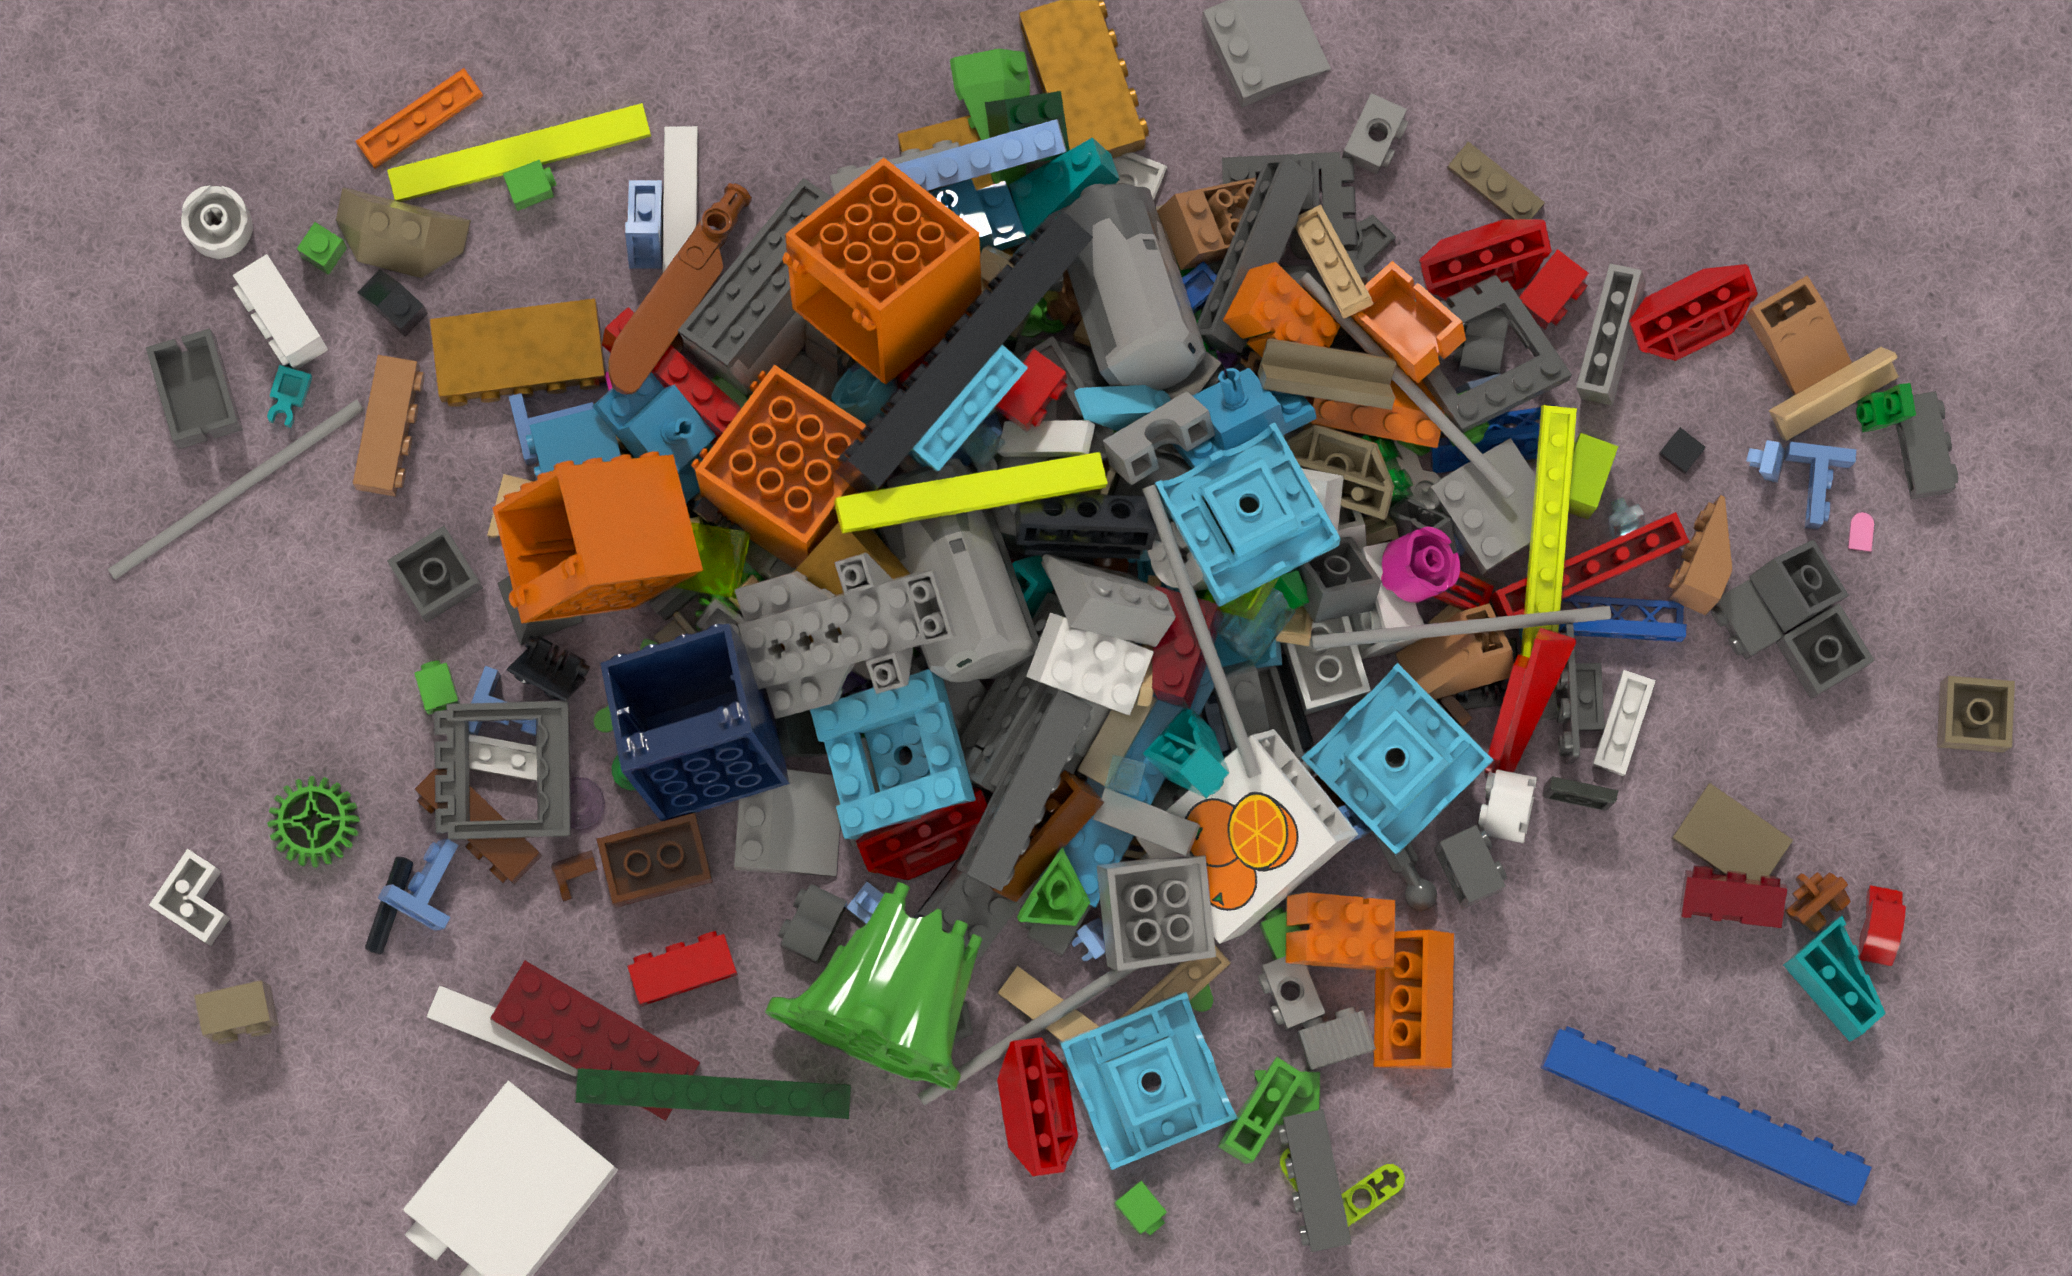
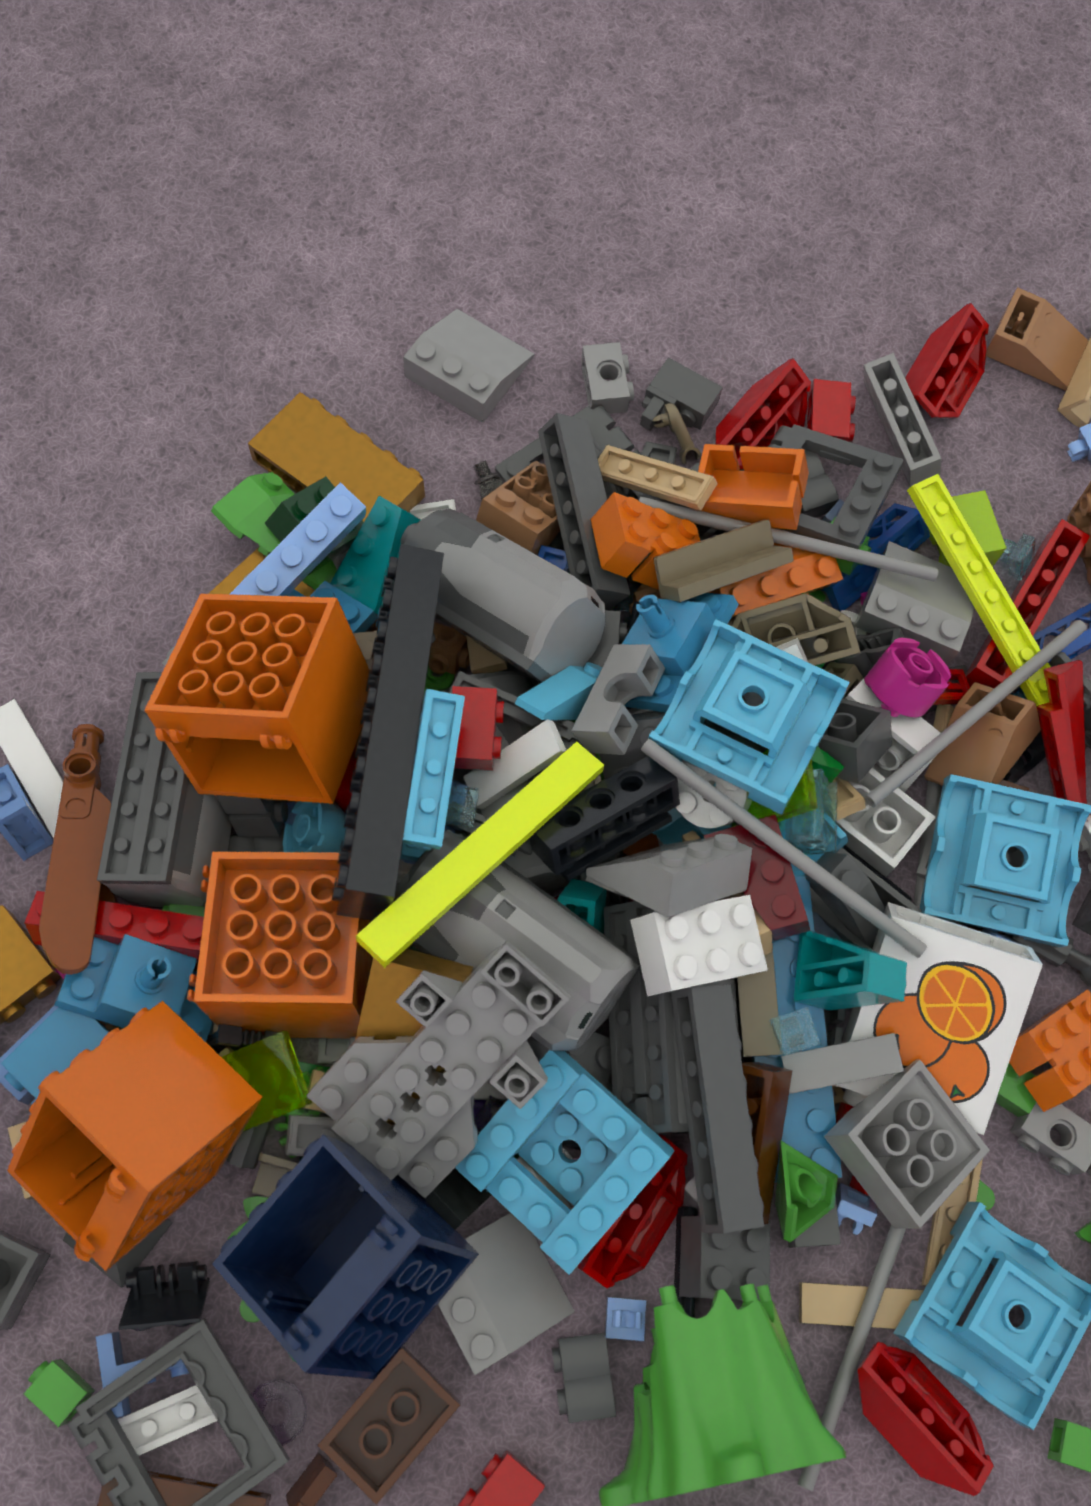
camera: 35 degrees left, 10 degrees down
(1206, 170) = (486, 480): none -> clear smoke piece
(1404, 217) = (676, 424): none -> dark tan piece
(1432, 187) = (685, 389): none -> dark grey hinge
(1495, 184) = (726, 365): dark tan plate -> none
(1682, 450) = (1016, 479): black tile -> none

